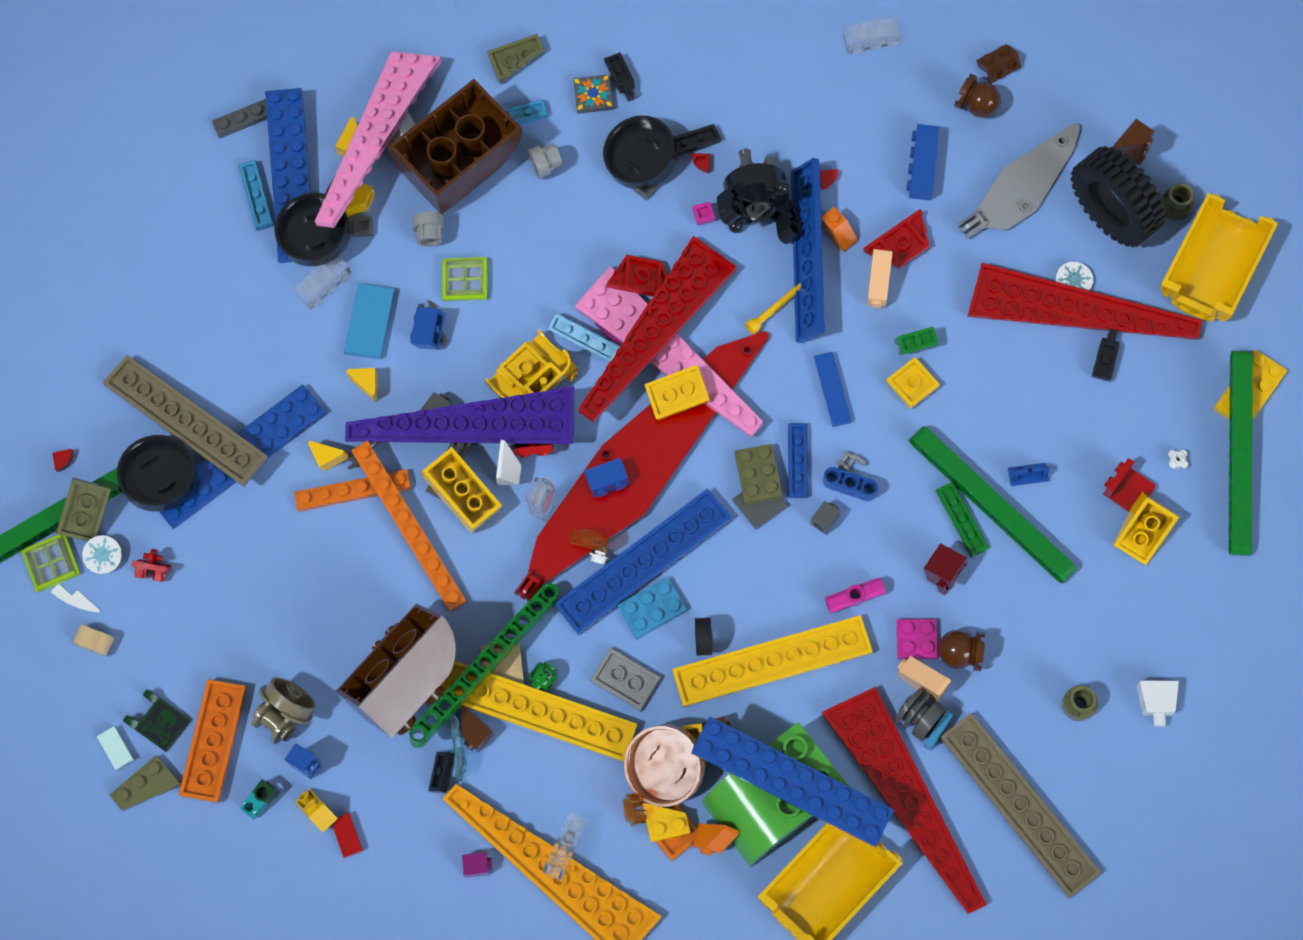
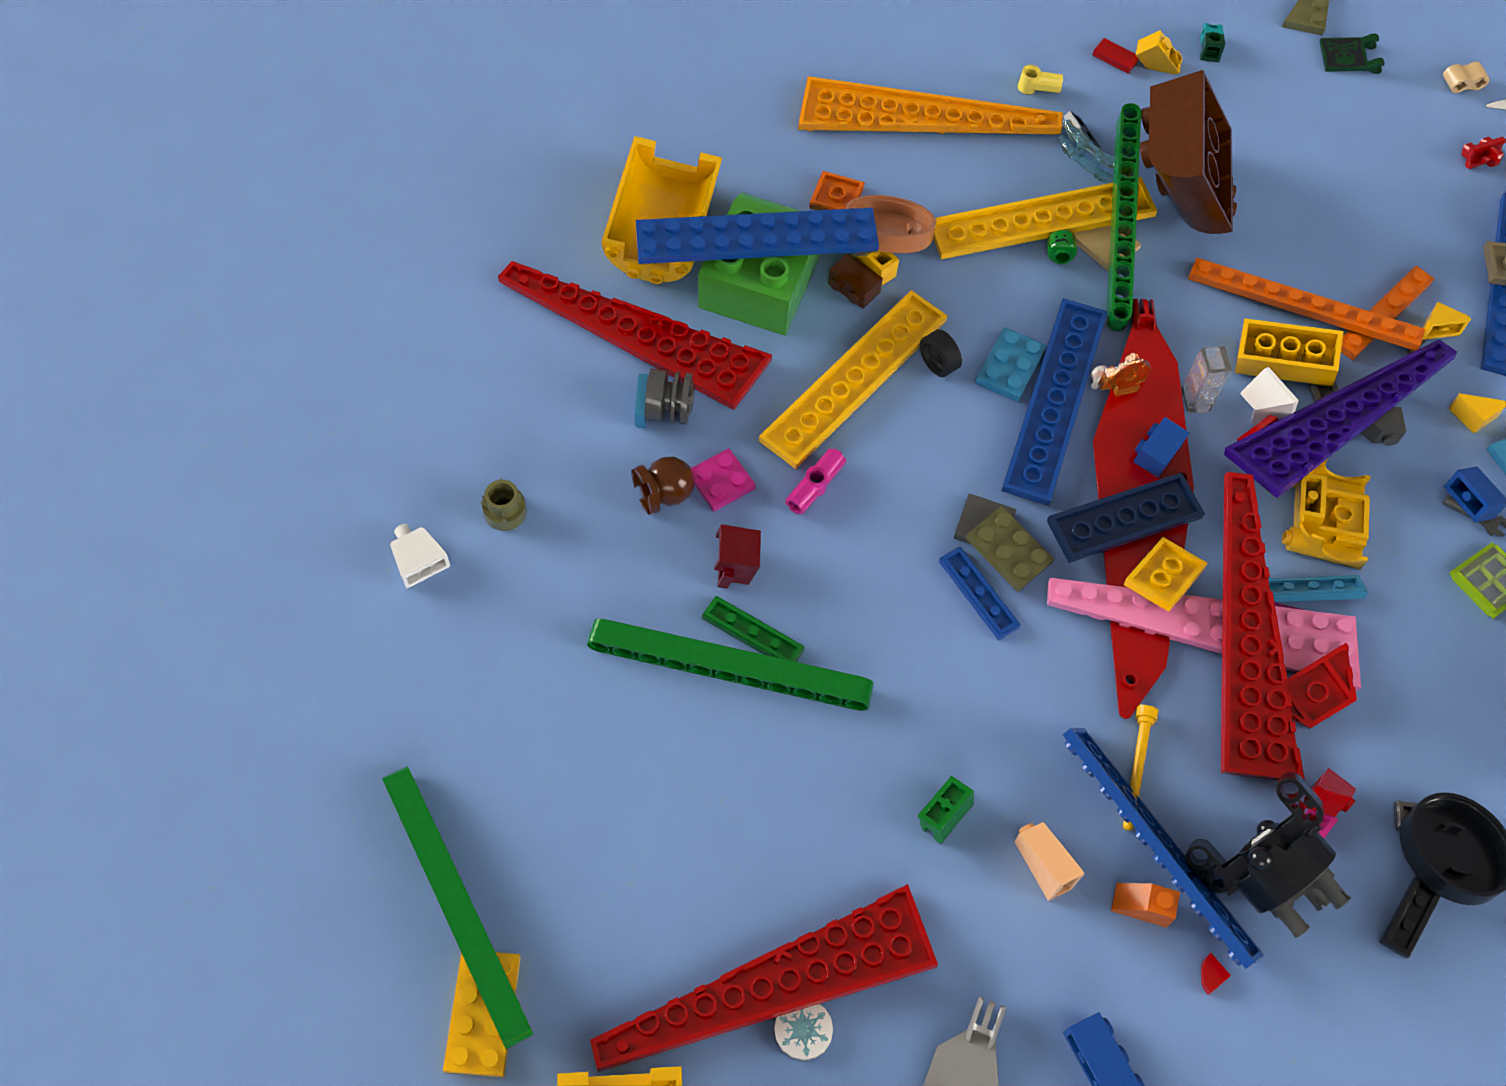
camera: 140 degrees right, 10 degrees down
(115, 748) = (1361, 20): light aqua tile -> none
(213, 741) = (1292, 61): orange plate -> none
(288, 698) = (1253, 89): dark tan piece -> none
(303, 761) = (1211, 62): blue brick -> none
(432, 841) = (1033, 79): none -> light yellow piece
(474, 730) = (1083, 173): reddish brown slope -> none
(476, 864) = (990, 83): magenta brick -> none
(565, 846) = (925, 122): clear brick -> none
(625, 679) = (984, 291): light grey tile -> none
(637, 815) = (883, 182): clear orange piece -> none
(665, 823) = (849, 187): yellow wing -> none
(669, 446) = (1125, 517): none -> dark blue plate
(688, 219) = (1334, 793): none -> red slope
(701, 161) = (1376, 896): red tile -> none
(713, 838) = (799, 195): orange slope -> none
(825, 517) = (904, 543): dark grey brick -> none
(832, 389) = (1001, 696): blue tile -> none
(844, 476) = (911, 585): blue beam -> none
(854, 458) = (920, 613): light grey piece -> none
(904, 240) = (1056, 939): red wing -> none
(912, 383) = (915, 756): yellow plate -> none
(922, 676) = (687, 434): light nougat slope -> none
(1020, 805) = (516, 379): dark tan plate -> none
(1028, 474) = (708, 727): blue hinge -> none
(1106, 357) = (698, 938): black hinge -> none
(1127, 485) = (576, 778): red bracket -> none
(1145, 528) = (529, 737): yellow slope -> none
(1173, 463) = (541, 855): white plate -> none

